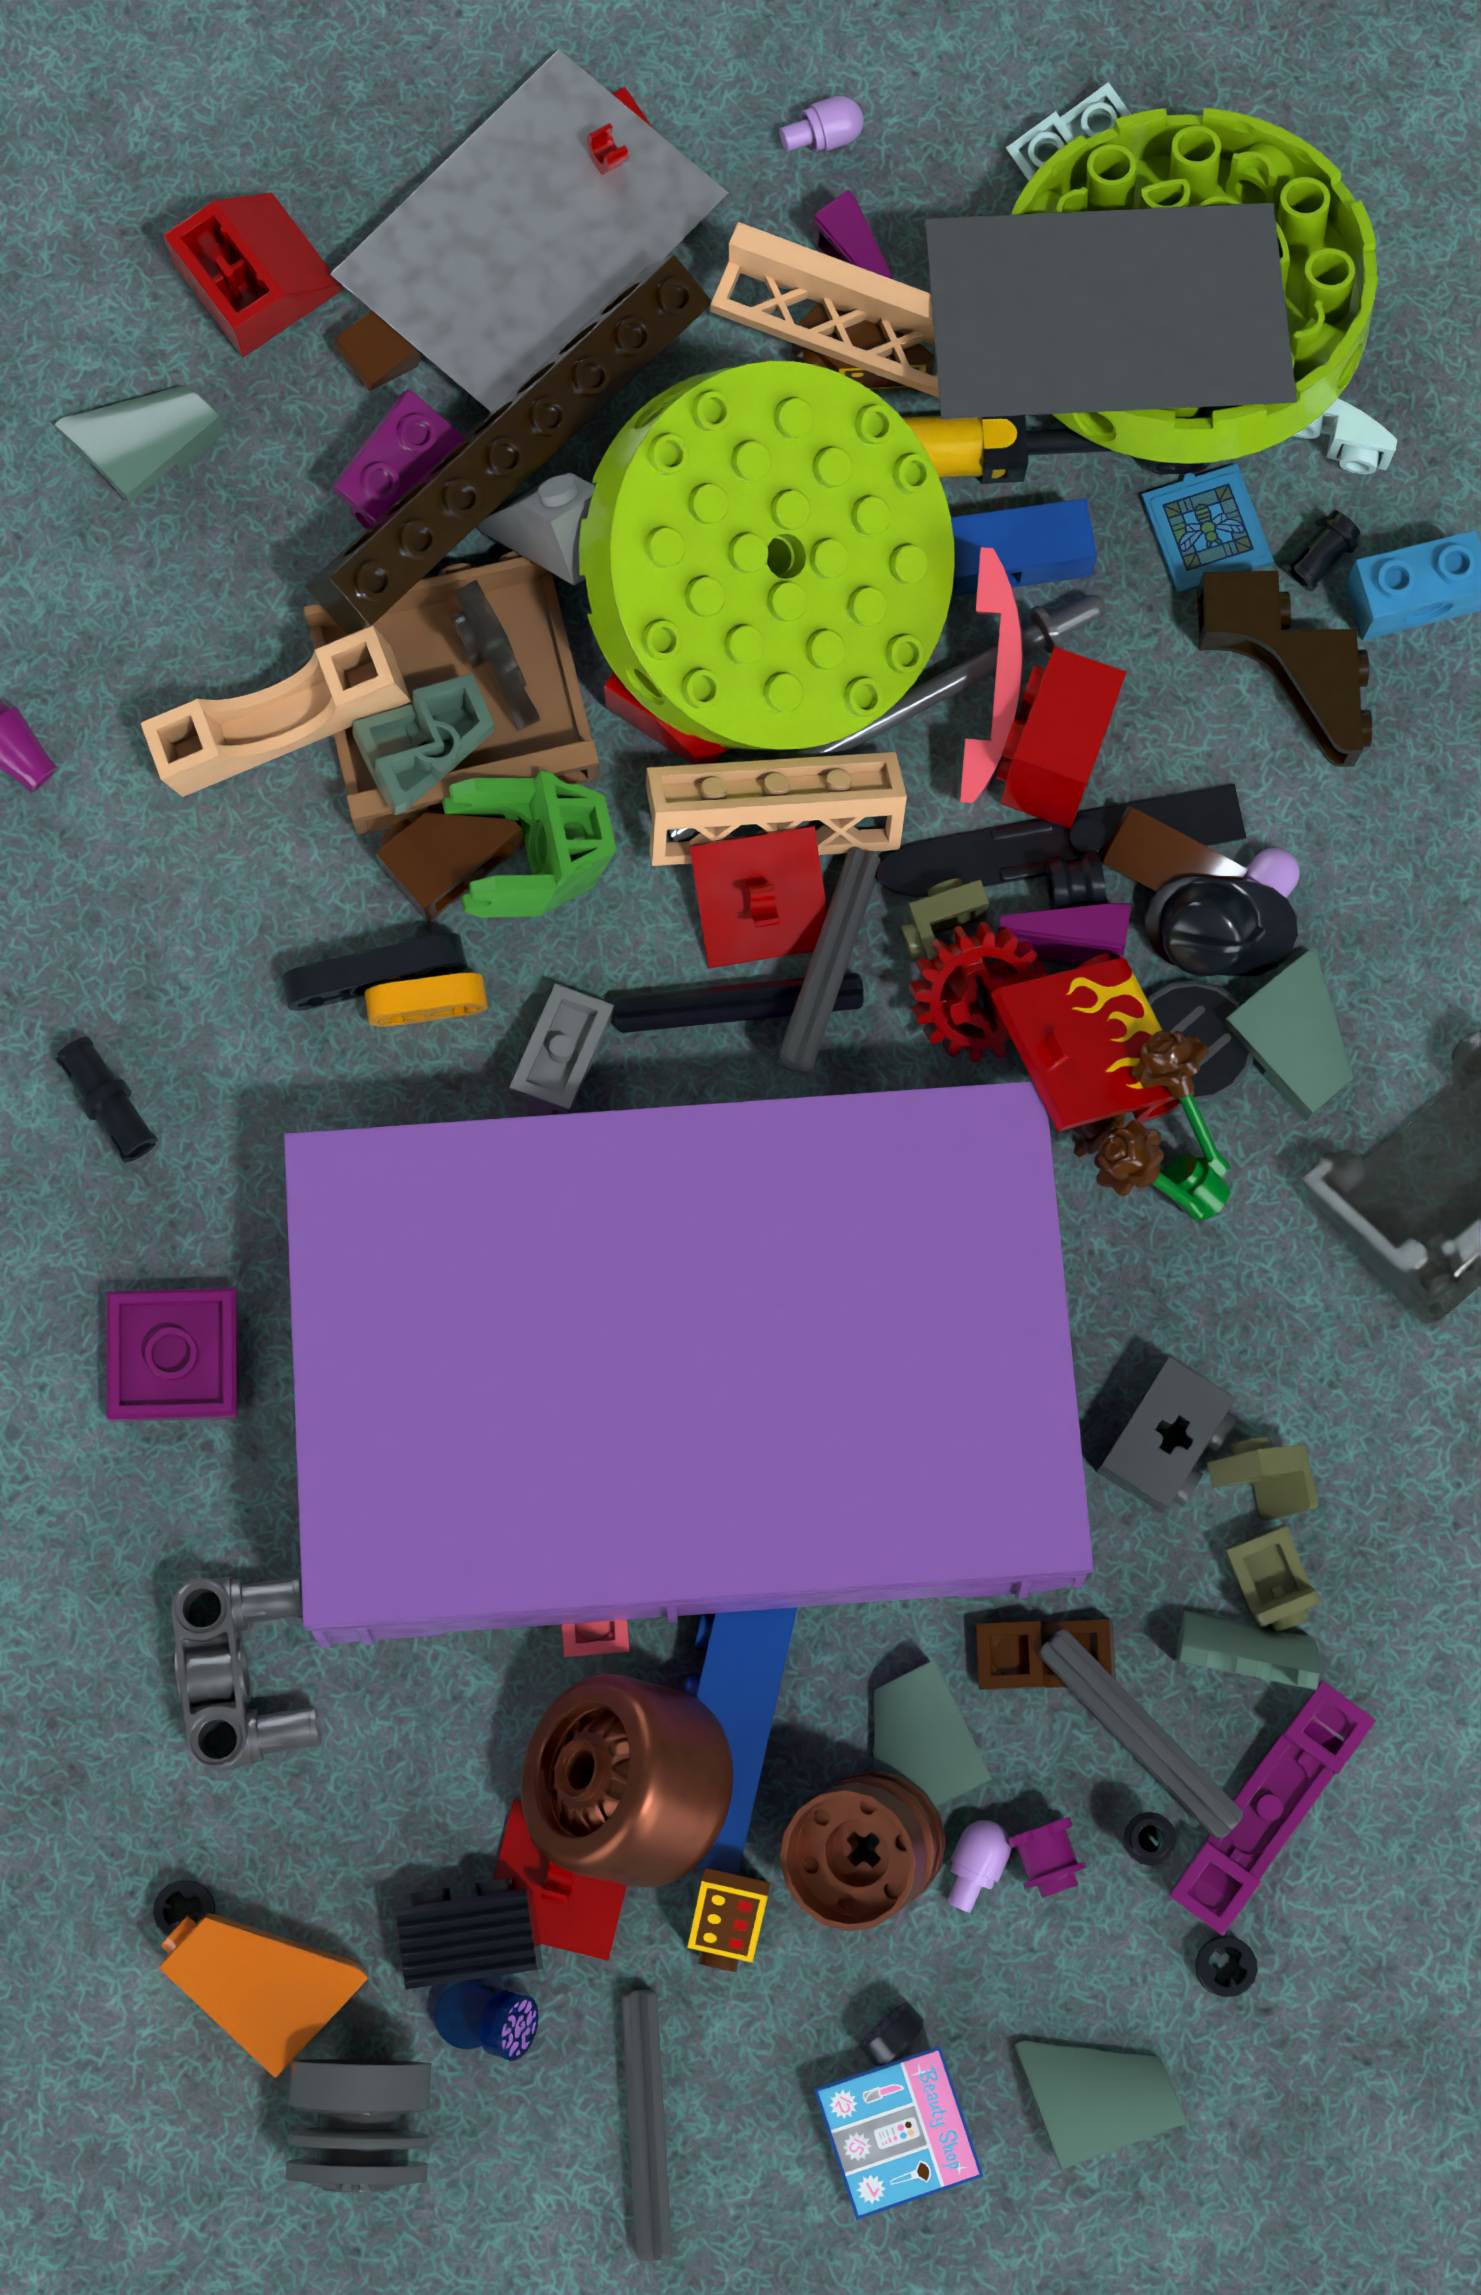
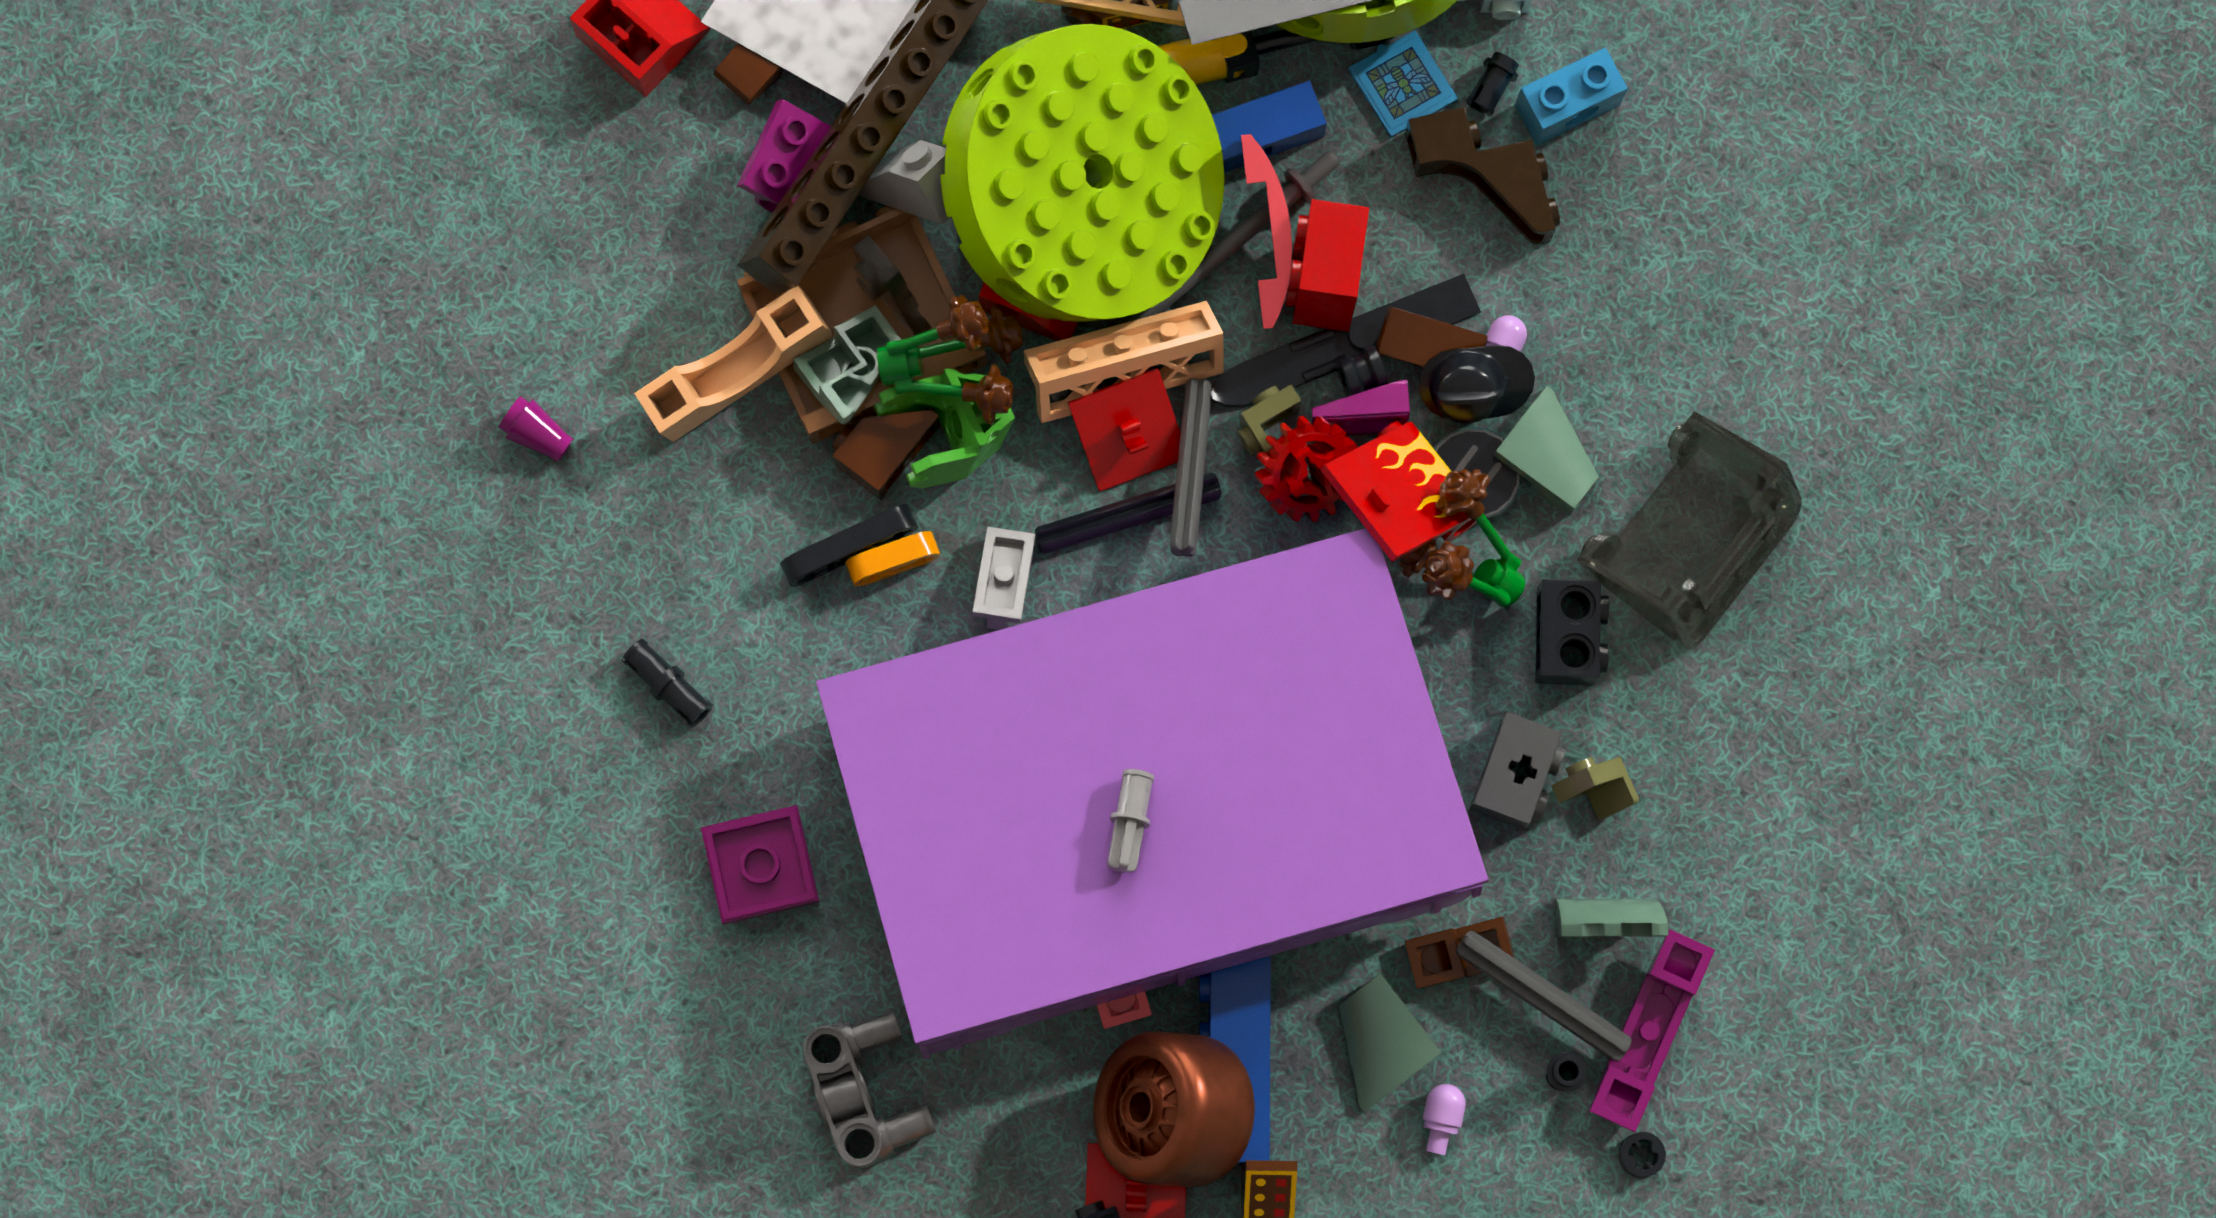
camera: 15 degrees left, 0 degrees up
(143, 437) = (582, 174): sand green slope -> none
(577, 716) = (969, 324): none -> reddish brown plant
(643, 1396) = (1130, 820): none -> light grey axle
(834, 1870) = (1338, 1143): copper wheel -> none
(1048, 1857) = (1494, 1102): magenta brick -> none
(1260, 1266) = (1556, 631): none -> black brick
(1272, 1578) = (1616, 861): olive bracket -> none

